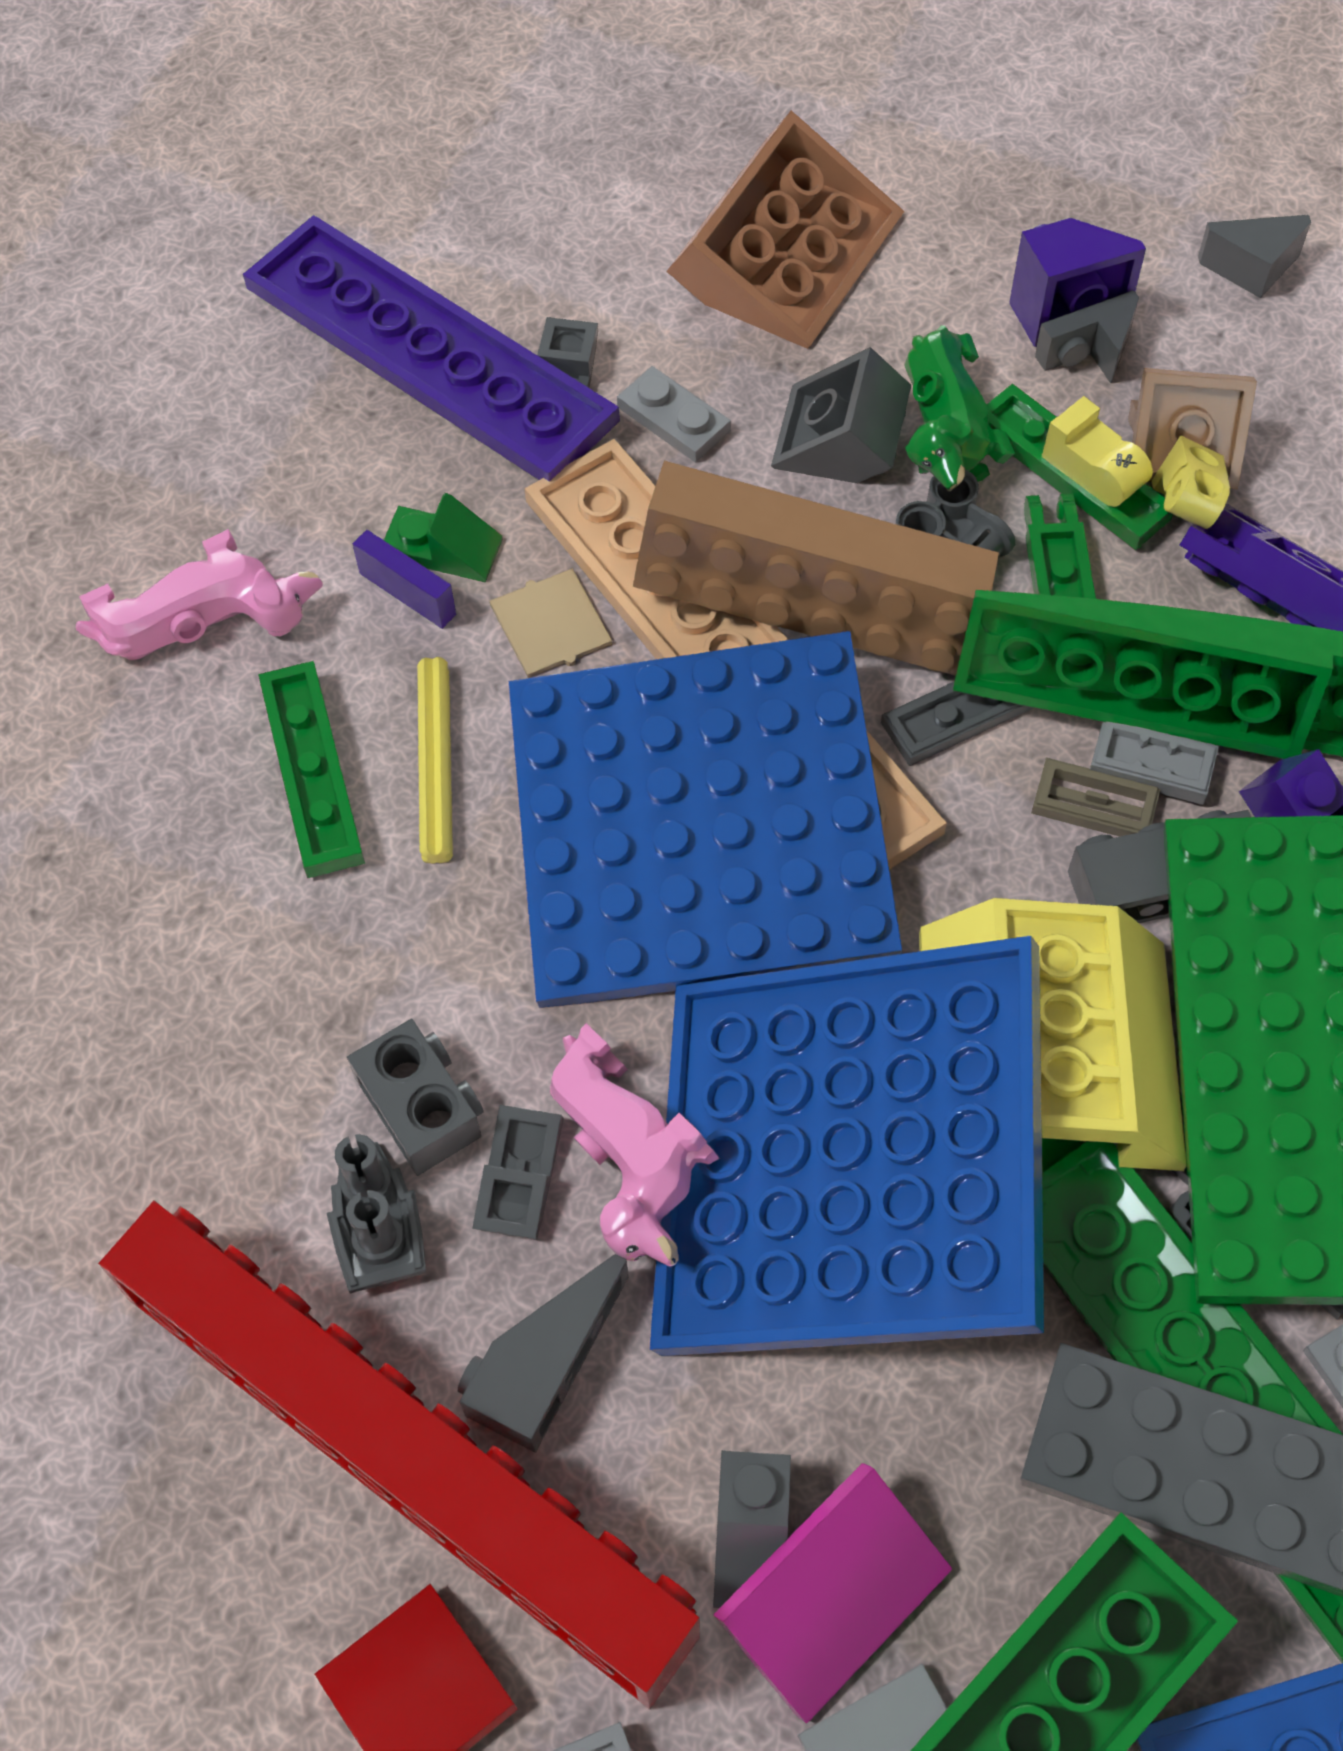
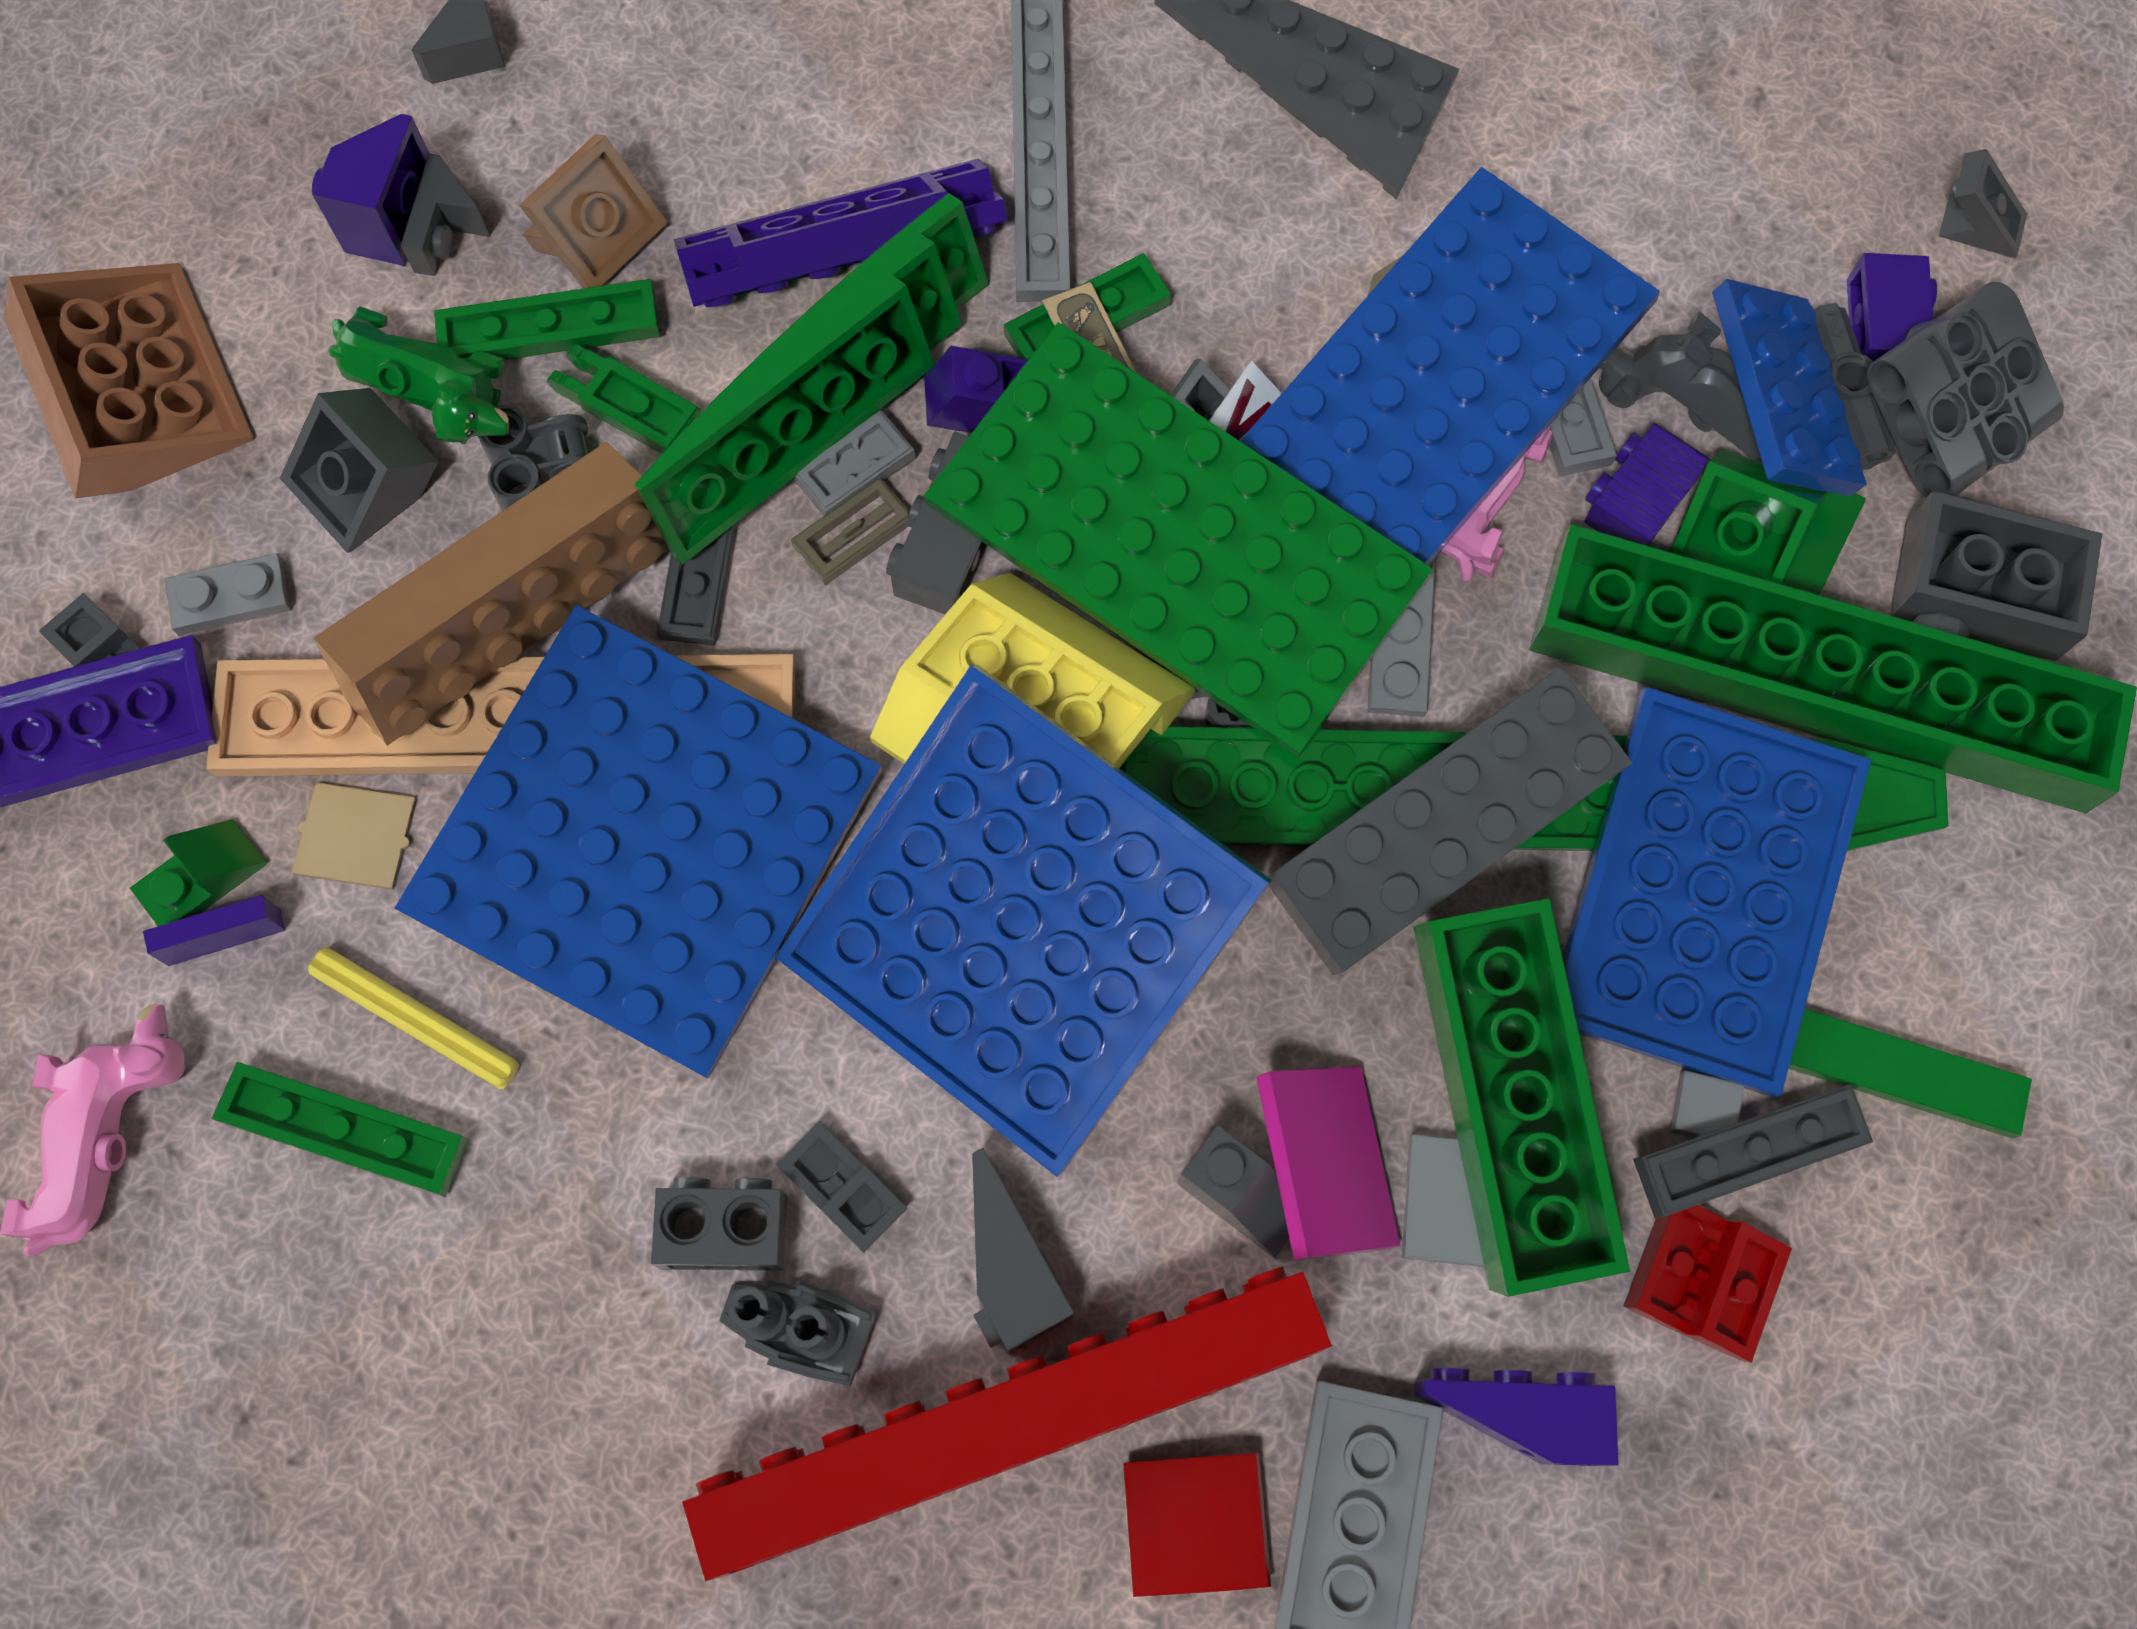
camera: 60 degrees left, 10 degrees up
(650, 1153) = (888, 1074): bright pink animal -> none
(1095, 454) = (562, 301): light yellow leg -> none
(1193, 483) = (651, 251): light yellow leg -> none

